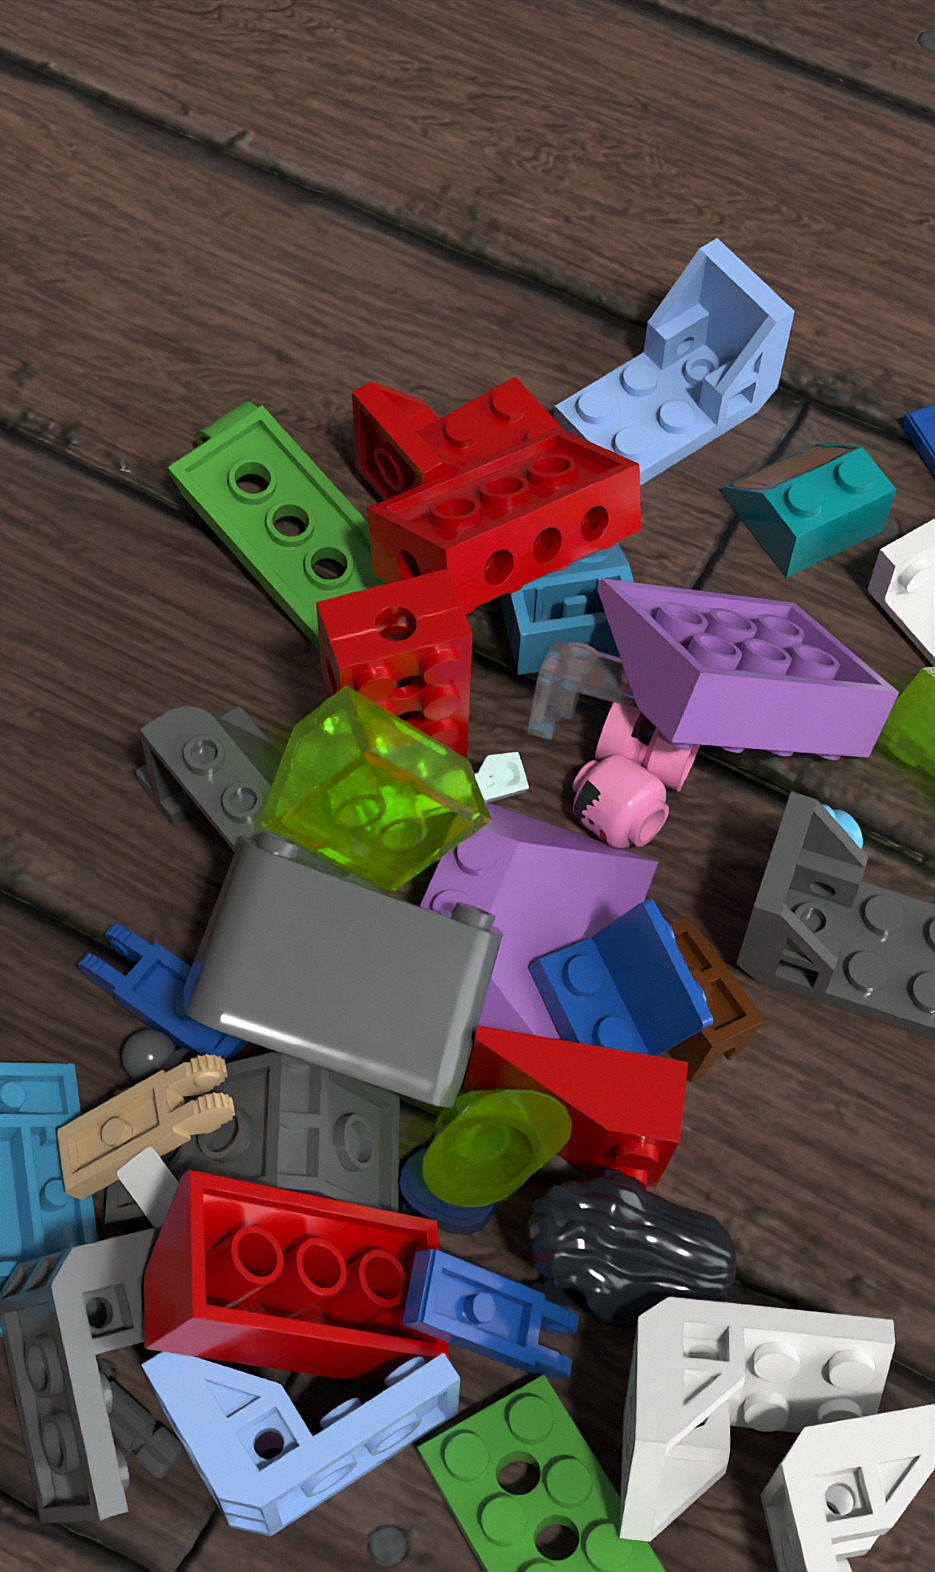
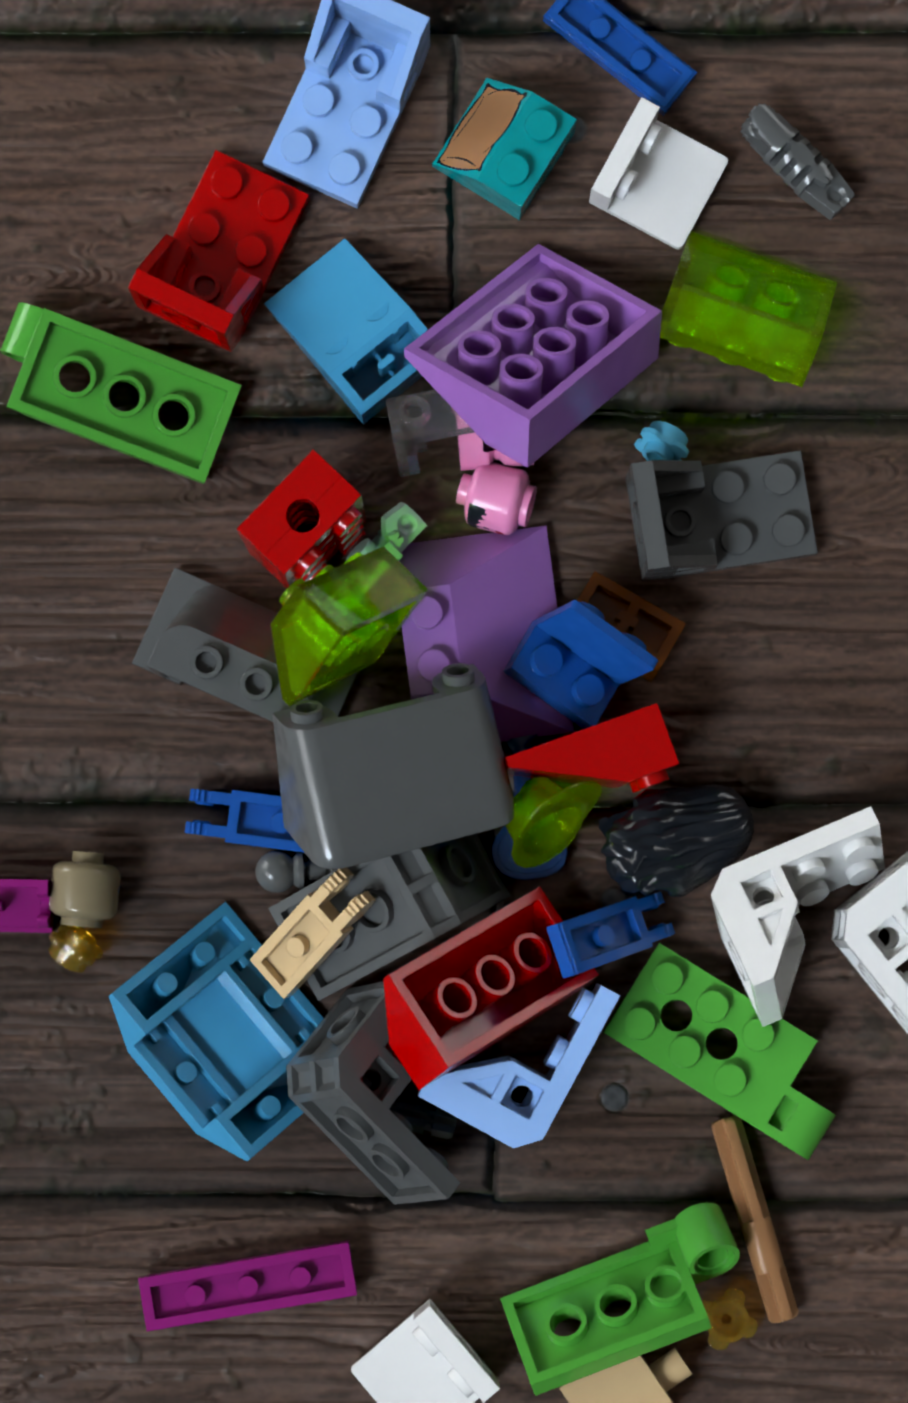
camera: 30 degrees left, 25 degrees up
(149, 1184) = (345, 970): white sticker -> none
(508, 517) = (301, 327): red brick -> none

